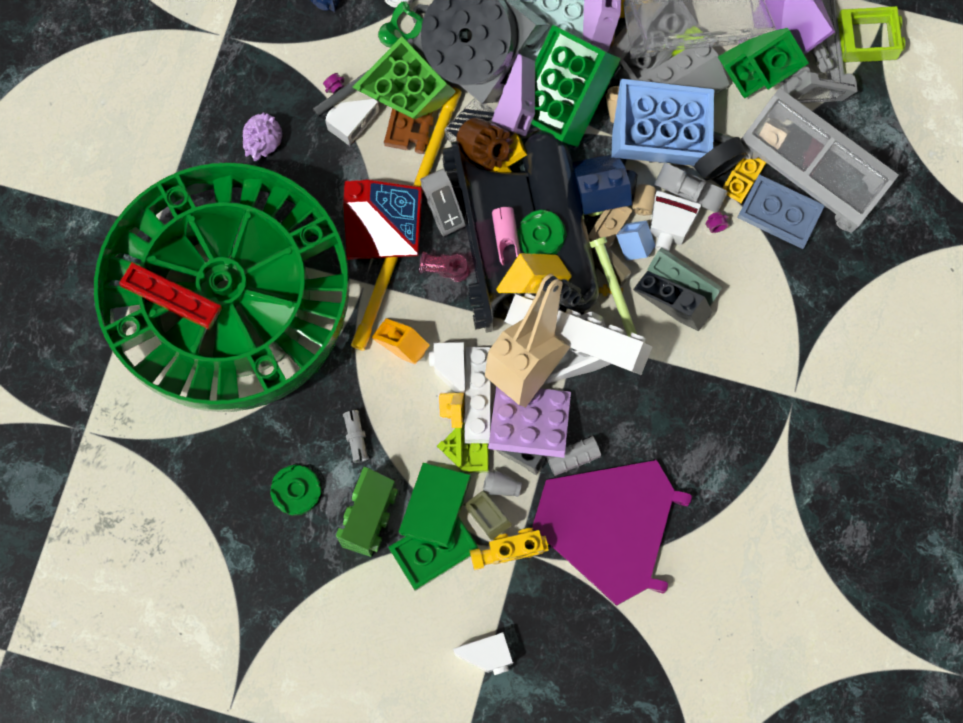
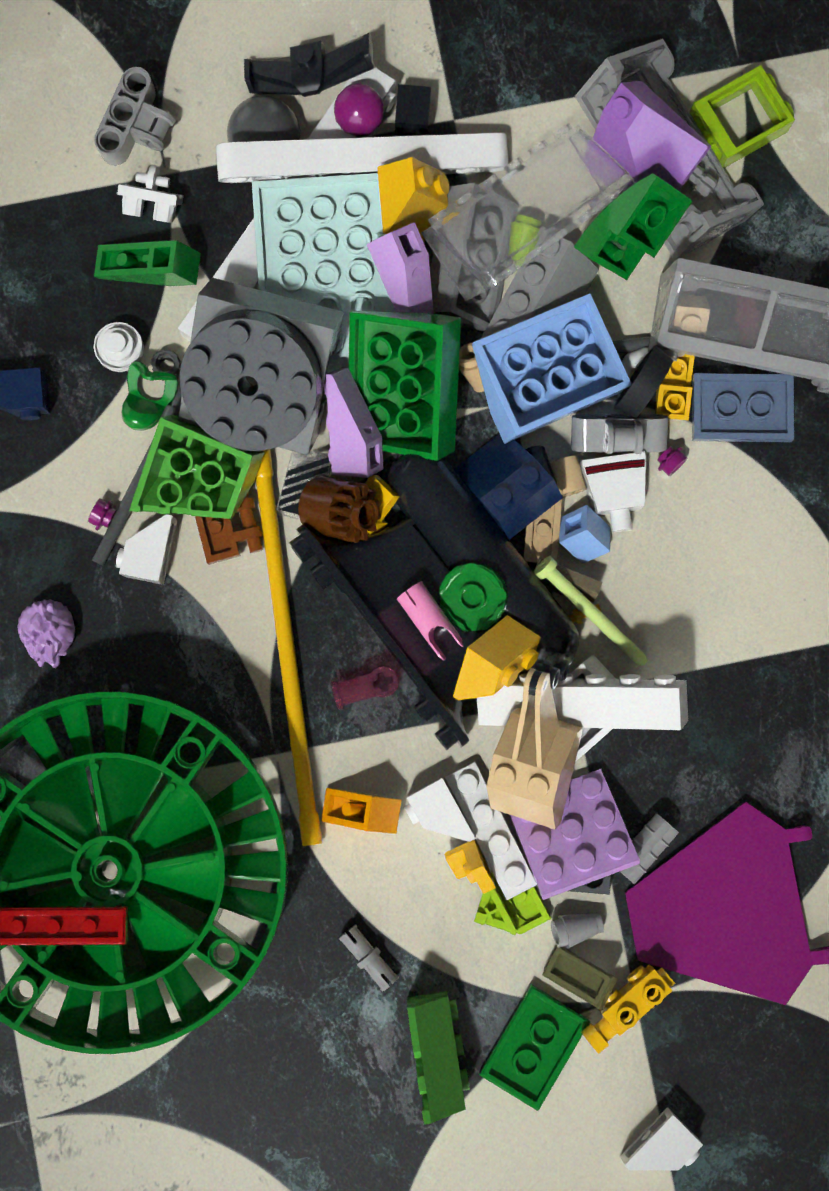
camera: 30 degrees left, 10 degrees up
(295, 490) = (329, 1061): green tile -> none
(381, 219) = (258, 668): red slope -> none
(435, 505) = (510, 996): green tile -> none
(442, 202) = (322, 608): beam -> none
(674, 300) = (667, 588): black slope -> none
(680, 273) = (668, 554): sand green plate -> none

